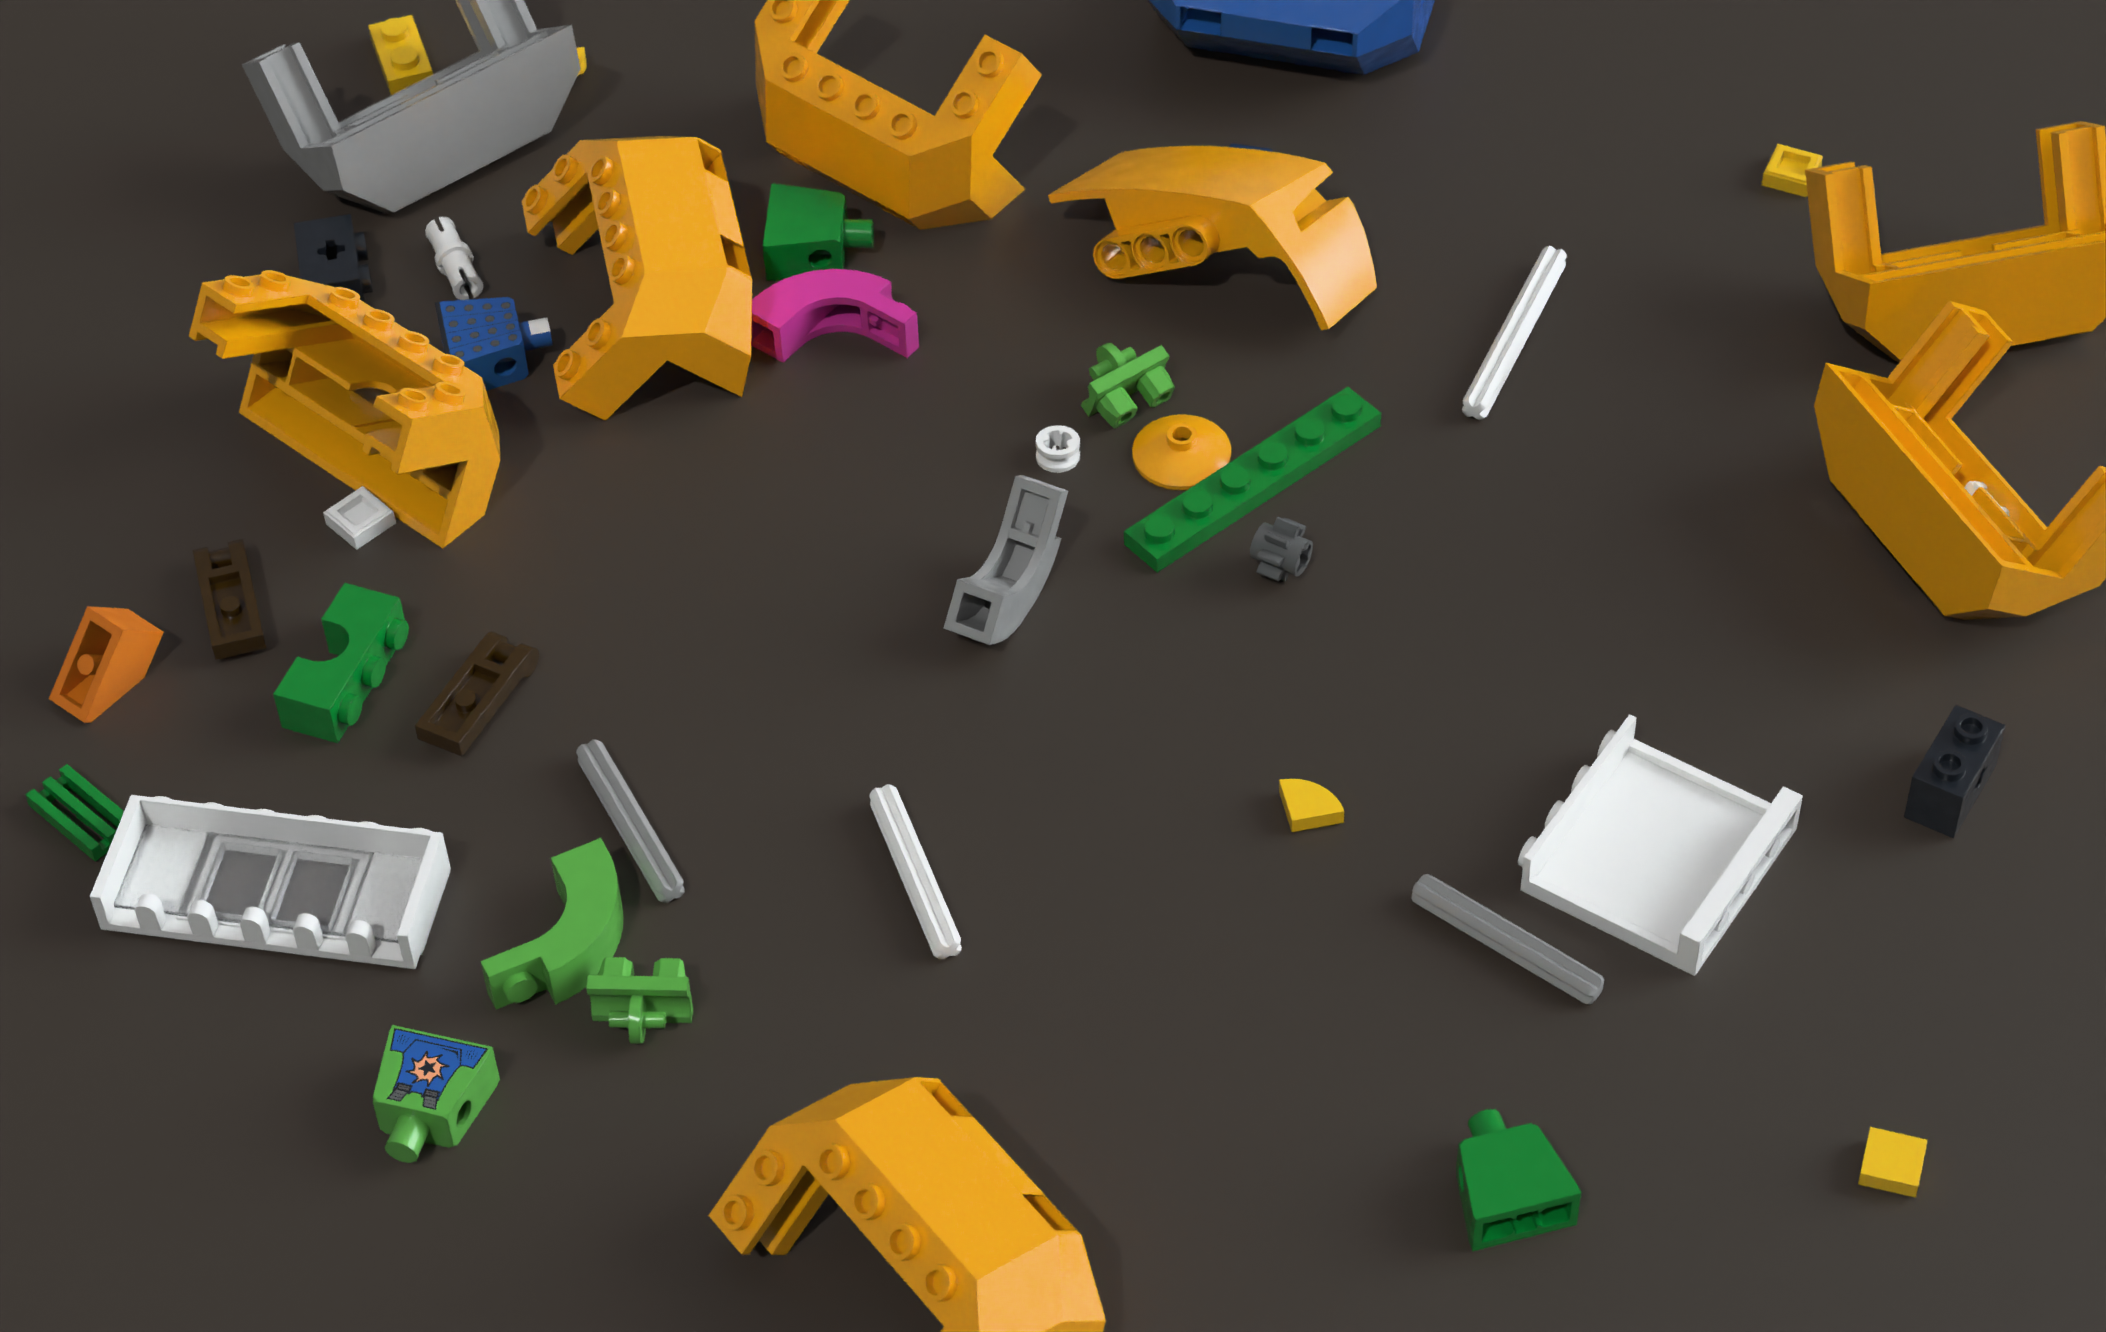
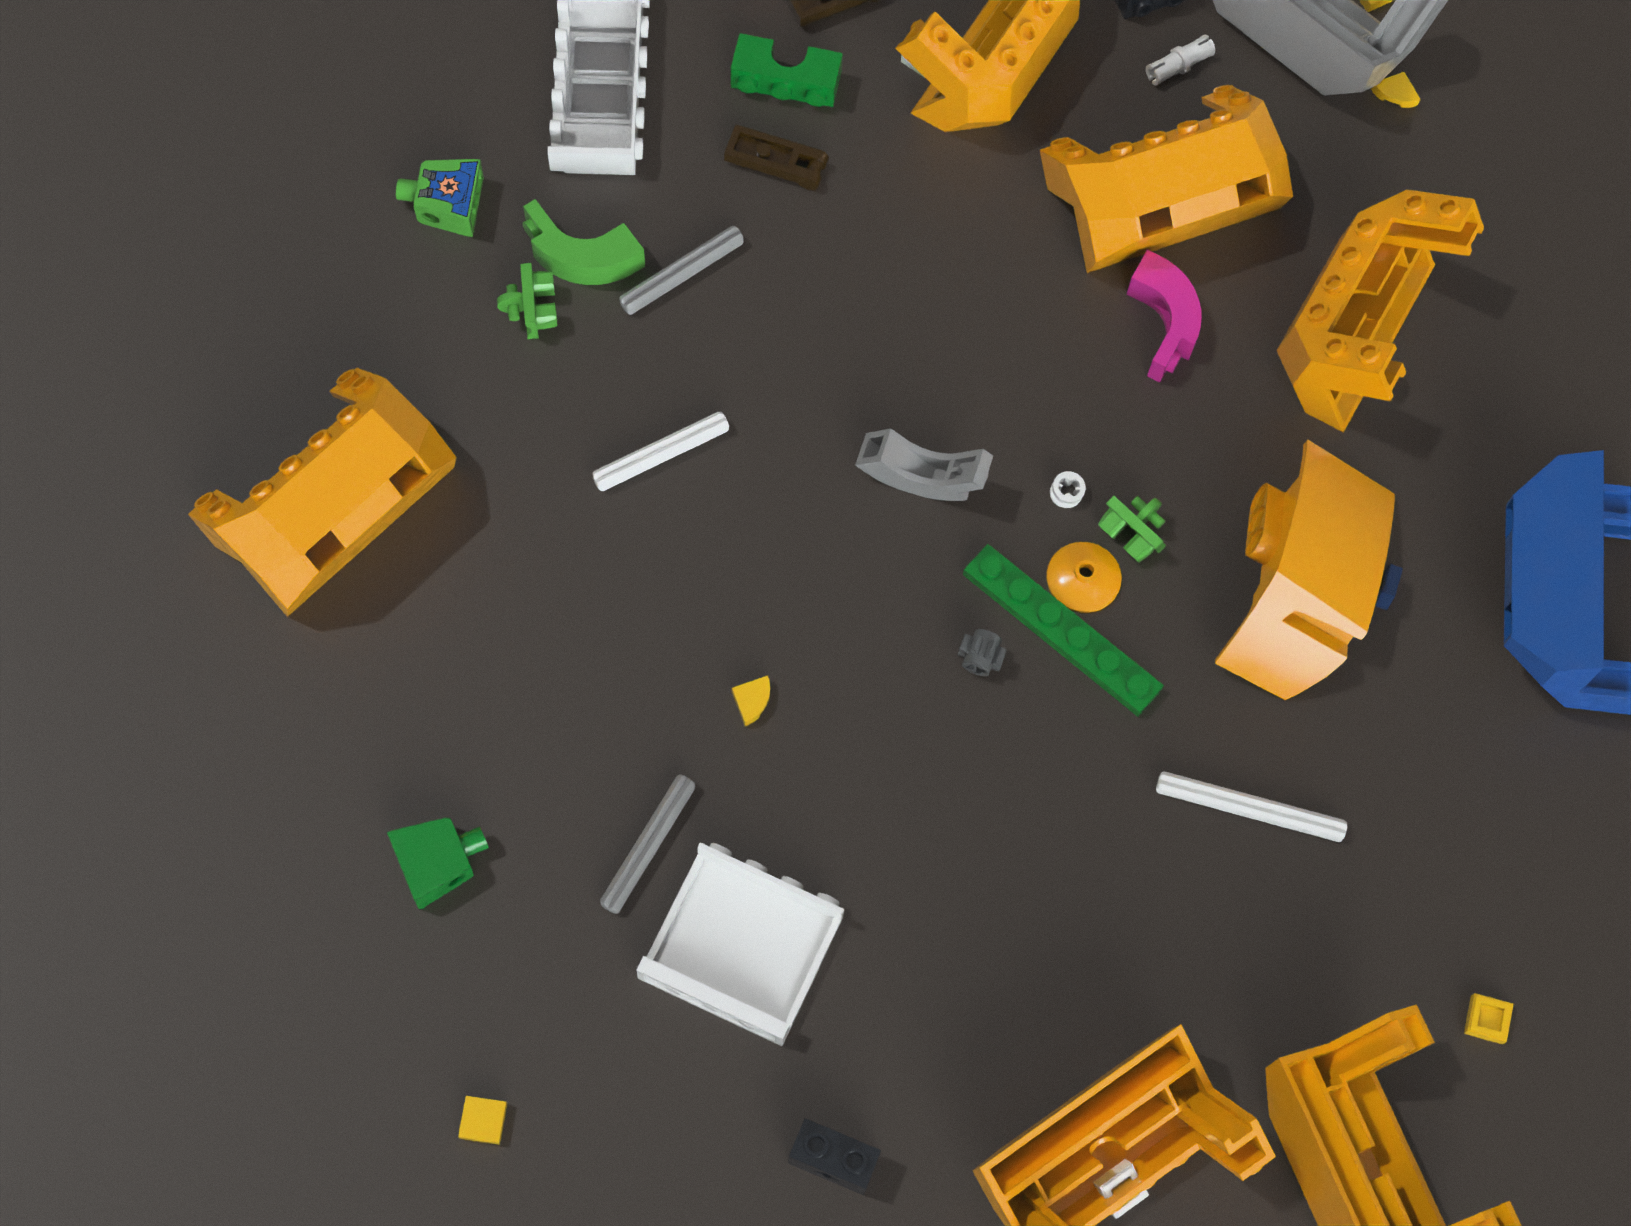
camera: 75 degrees right, 20 degrees up
(491, 337) = (1093, 95): blue torso -> none
(809, 231) = (1248, 284): green torso -> none

